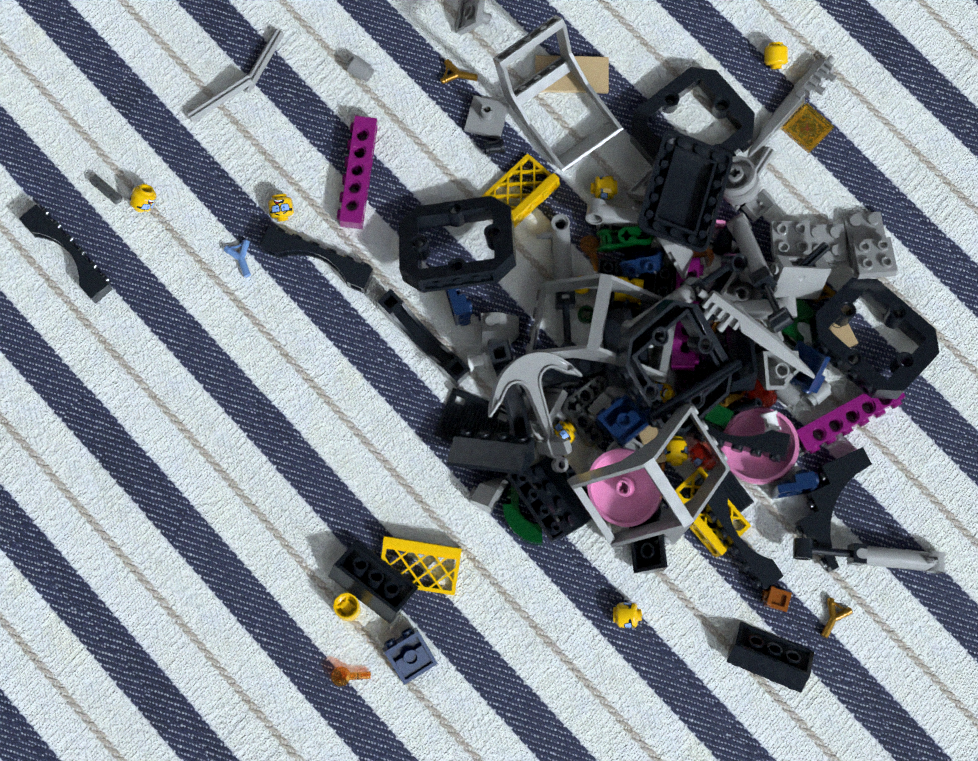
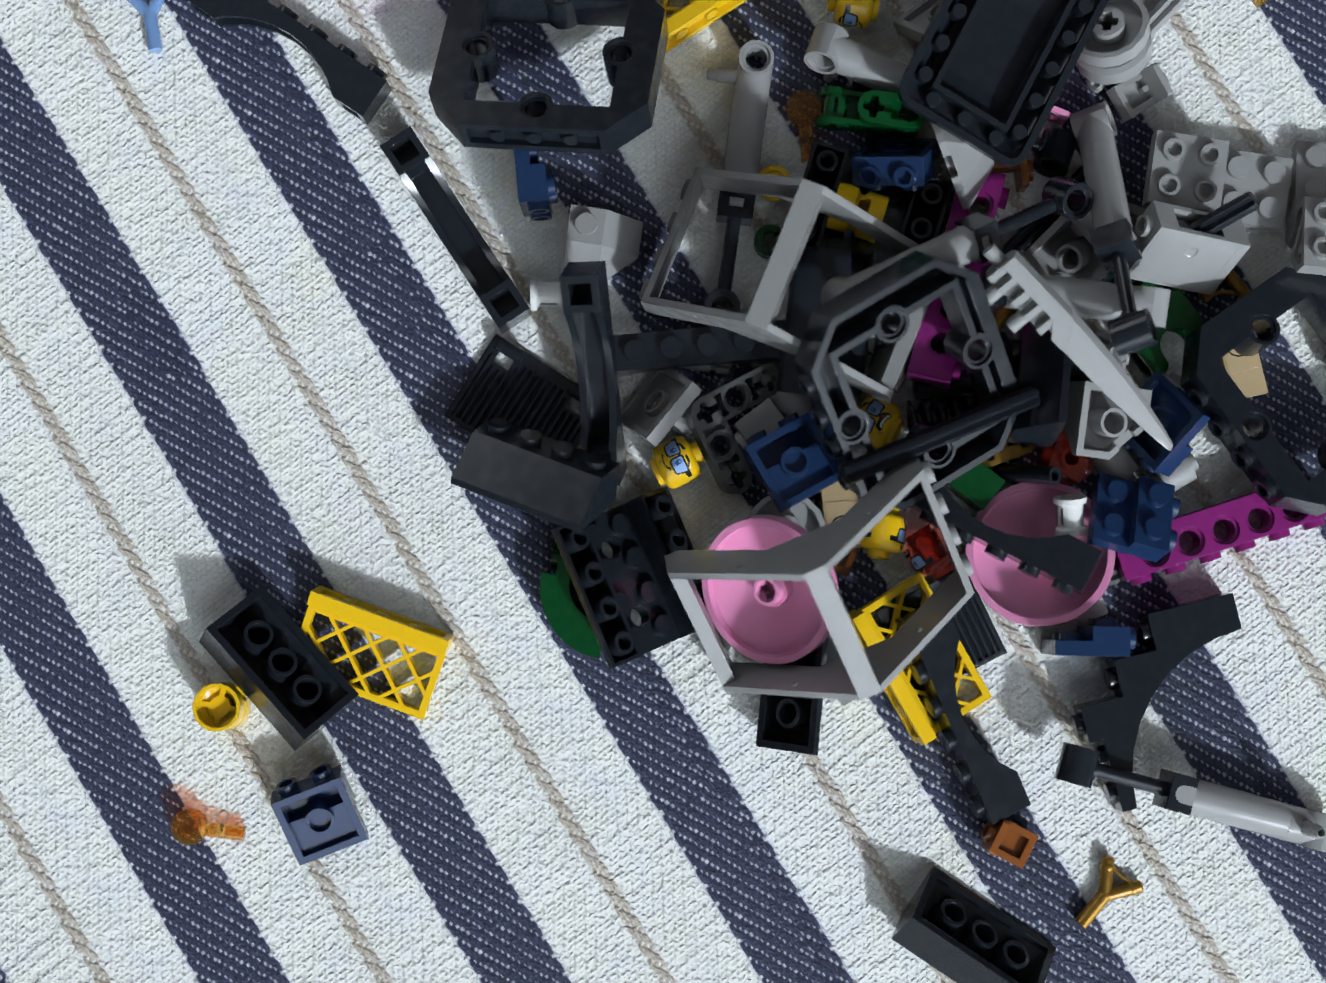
camera: 15 degrees right, 10 degrees up
(488, 493) = (518, 547): light grey slope -> none
(528, 372) = (629, 341): light grey piece -> none
(627, 615) = (728, 817): yellow head -> none
(803, 416) = (1133, 516): none -> dark blue plate

